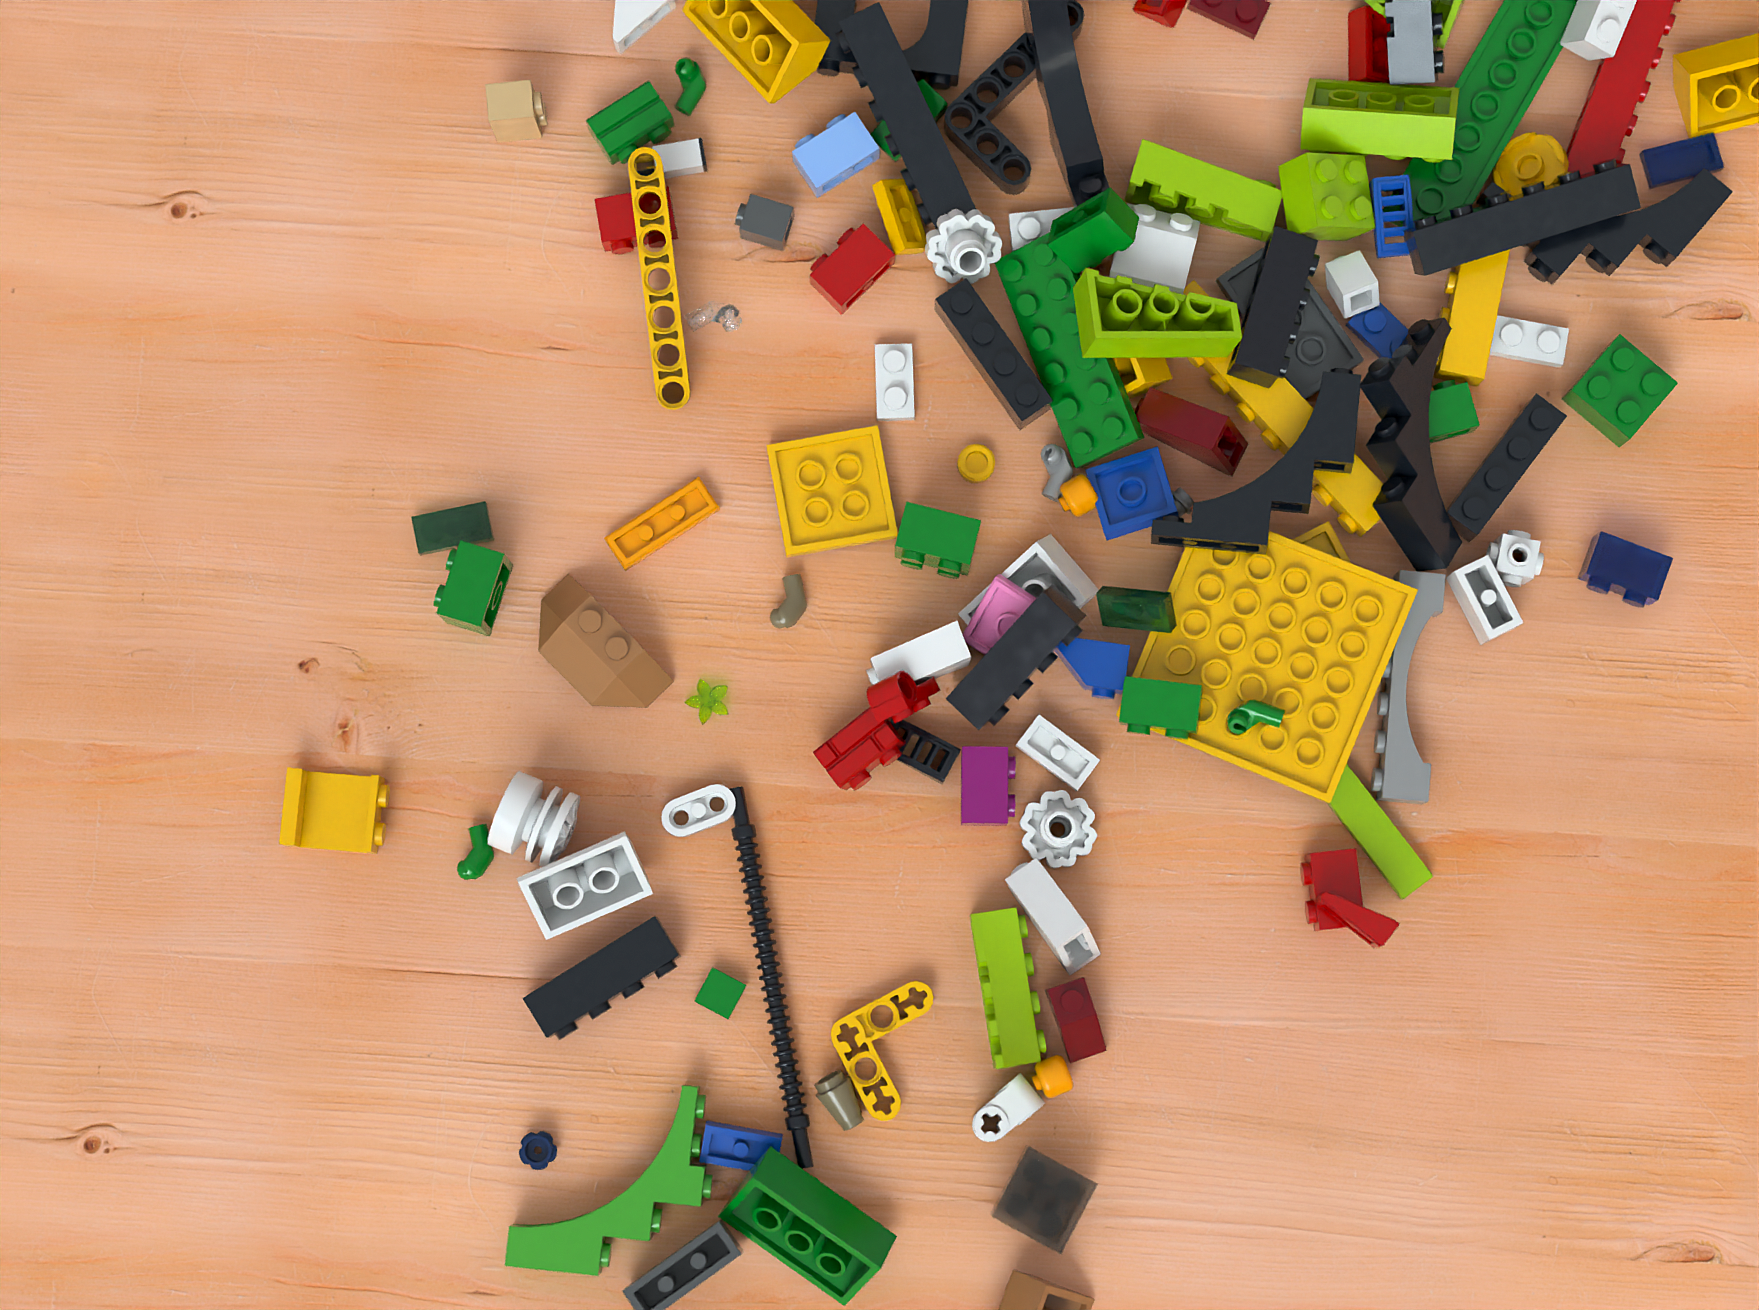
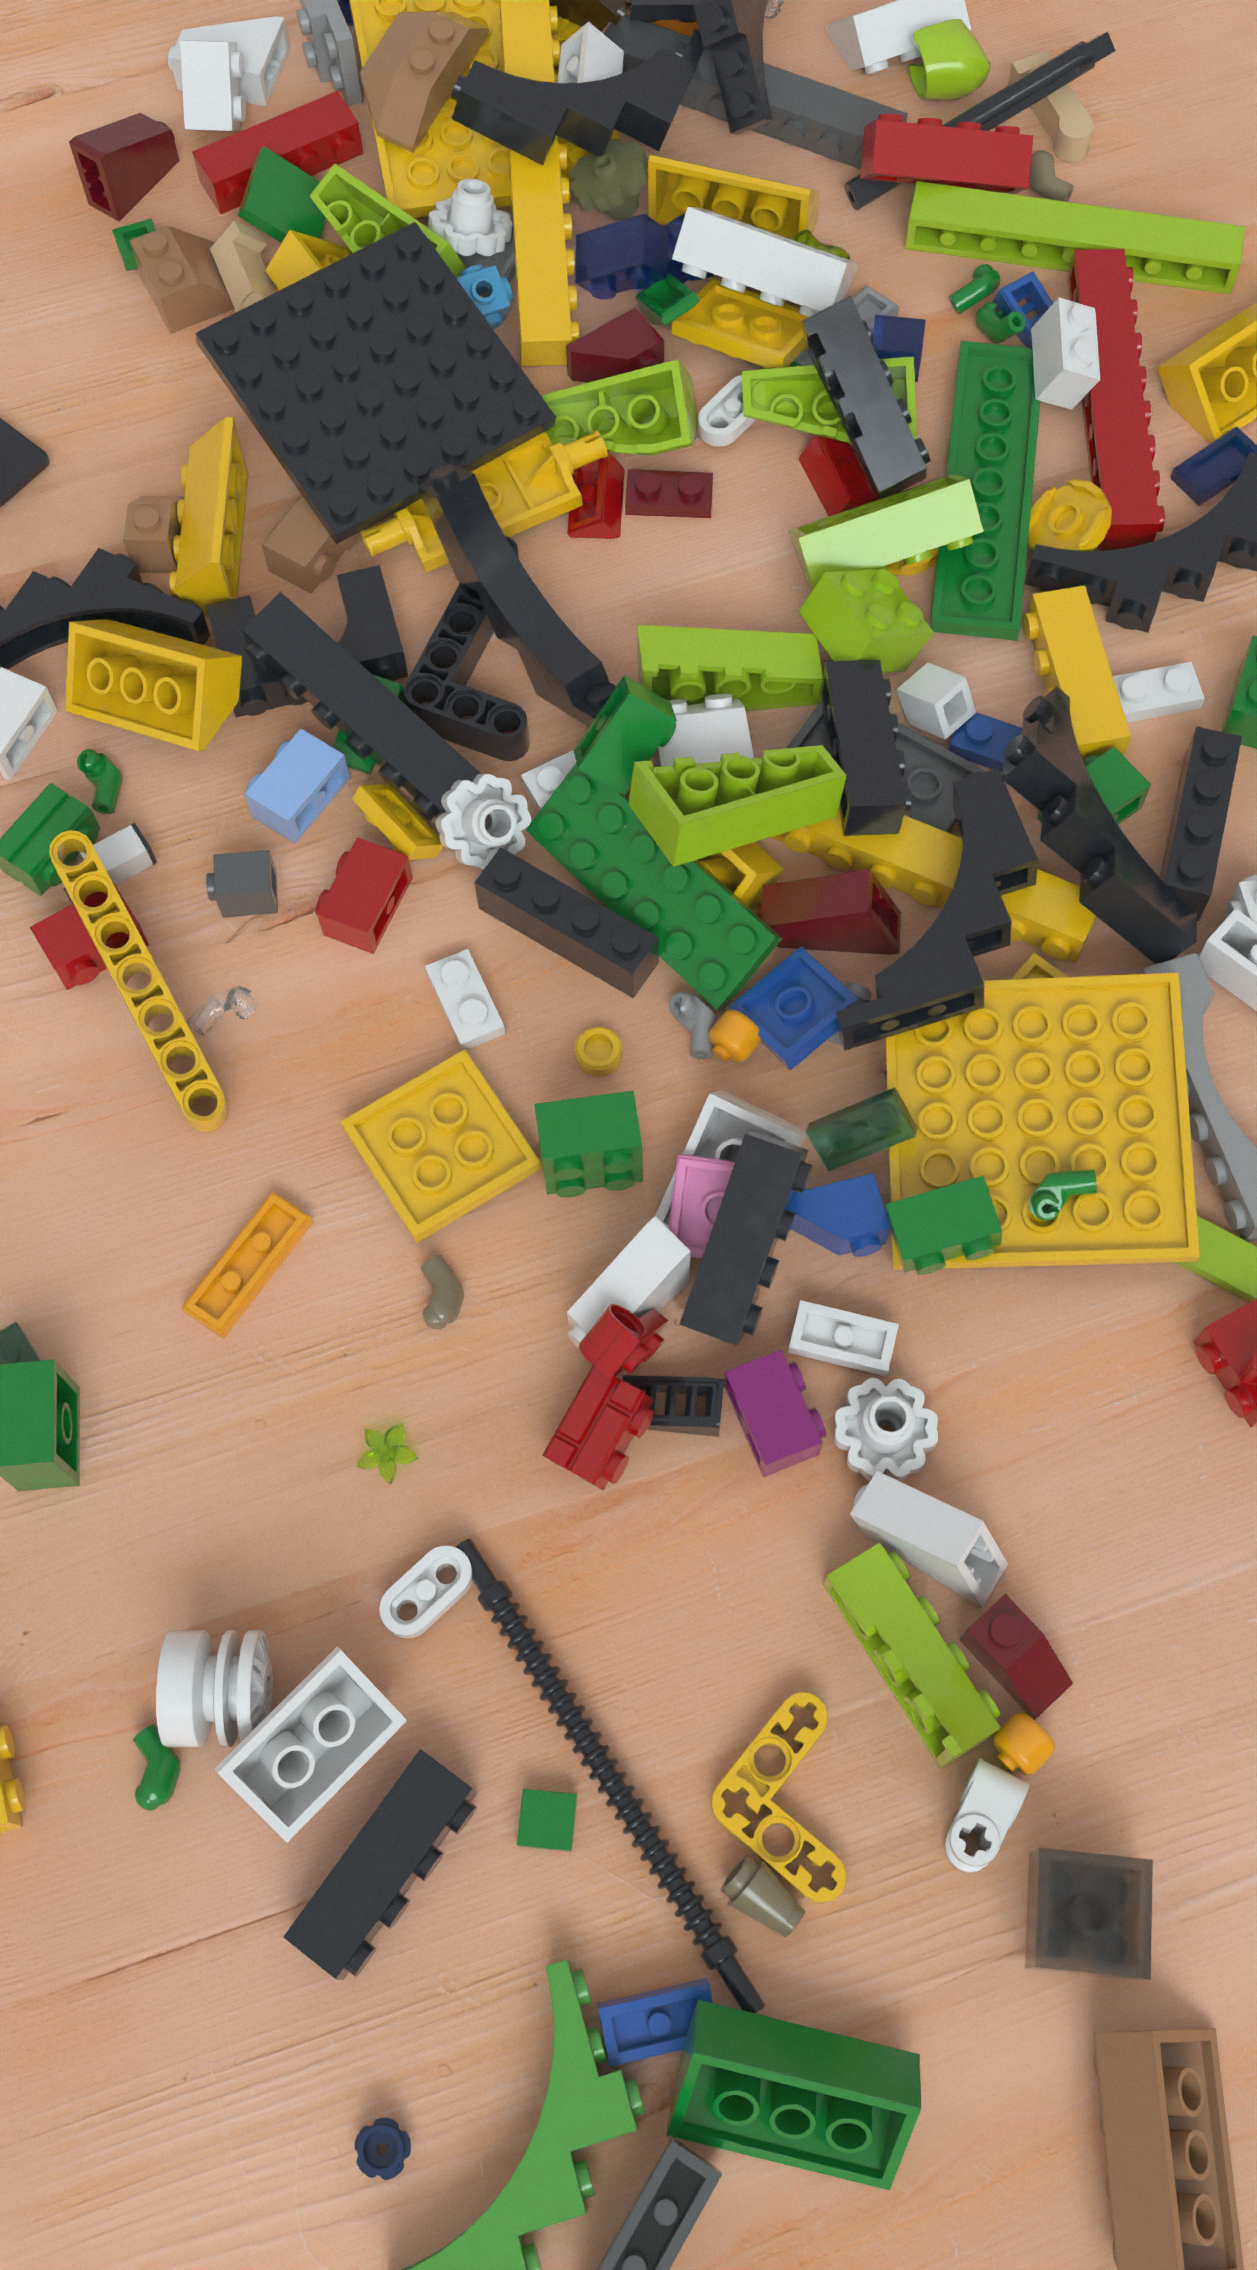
camera: 20 degrees left, 15 degrees down
(596, 650) = (223, 1444): medium nougat wedge -> none
(1385, 184) = (939, 588): blue slope -> none
(1522, 218) = (1088, 557): black brick -> none

